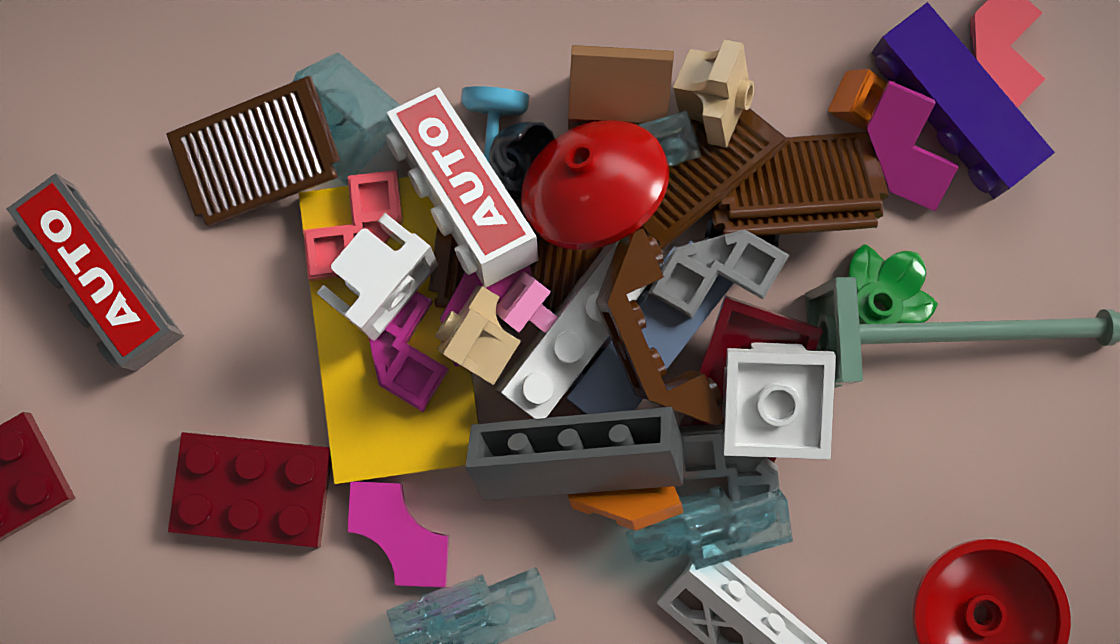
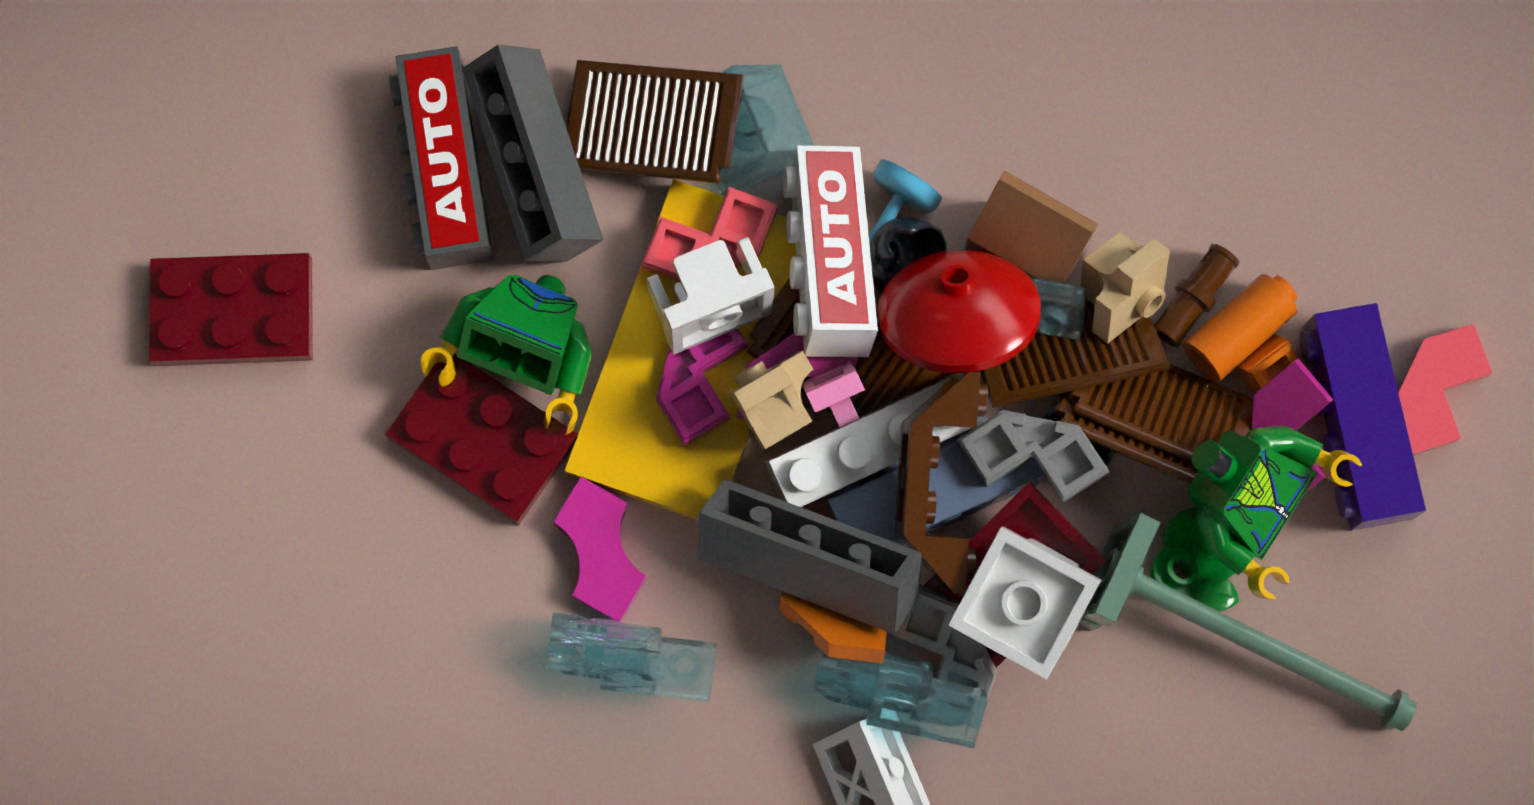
camera: 25 degrees right, 5 degrees down
(167, 232) = (532, 154): none -> dark grey brick
(235, 392) = (521, 334): none -> green torso
(774, 69) = (1195, 294): none -> reddish brown pin
(825, 77) = (1241, 326): none -> orange brick
(910, 211) = (1250, 491): none -> green torso

